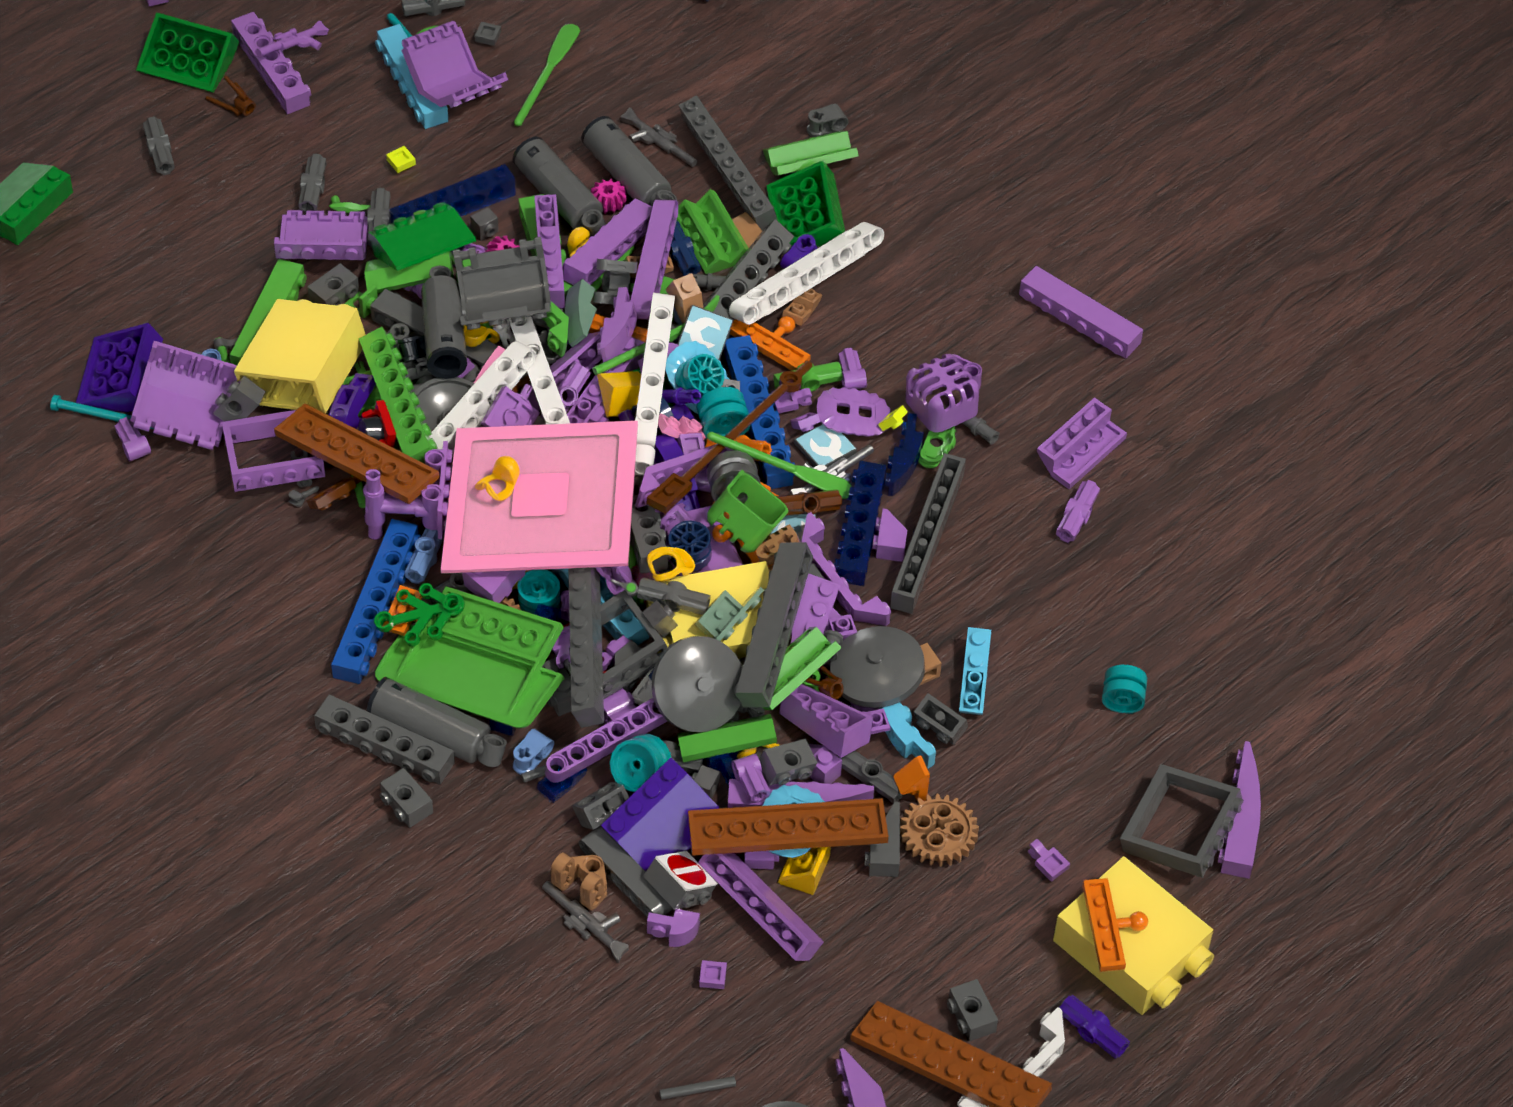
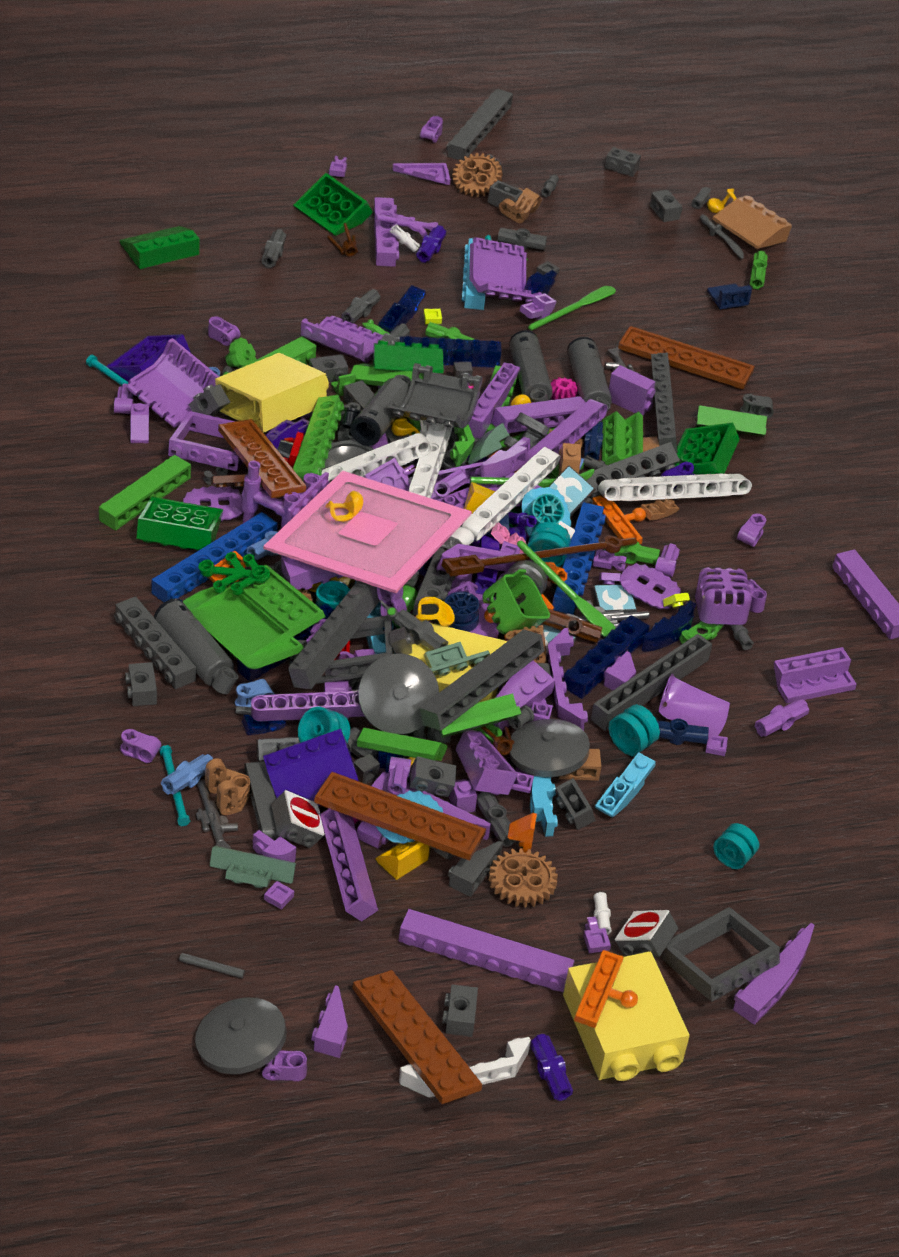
camera: 25 degrees right, 10 degrees down
(172, 463) = (139, 423): none -> medium lavender slope
(177, 291) = (222, 330): none -> medium lavender piece
(226, 317) = (240, 353): none -> bright green plant
(241, 553) = (135, 497): none -> bright green brick
(303, 64) = (404, 238): none -> white pin
(309, 575) = (178, 523): none -> green slope
(333, 539) = (214, 495): none -> medium lavender piece
(334, 56) = (431, 243): none -> dark purple piece
(363, 166) = (404, 309): none -> clear blue slope
(435, 179) = (437, 331): none -> bright green piece
(456, 874) = (140, 746): none -> medium lavender piece
(494, 58) = (541, 283): none -> clear blue brick
(513, 92) = (539, 308): none -> medium lavender brick
(530, 883) = (185, 775): none -> medium blue piece
(546, 926) = (183, 819): none -> teal bar
(665, 959) = (251, 868): none -> sand green bracket
(687, 164) = (631, 390): none -> medium lavender brick
(712, 87) = (687, 357): none -> dark orange plate
(916, 288) = (752, 530): none -> medium lavender piece
(948, 602) = (634, 730): none -> teal wheel
(954, 932) = (485, 950): none -> medium lavender brick
(985, 542) = (693, 706): none -> medium lavender piece
(987, 580) = (679, 731): none -> dark blue piece
(1031, 575) = (716, 745): none -> medium lavender tile
(1037, 829) = (602, 911): none -> white pin
(1099, 834) = (646, 932): none -> piece

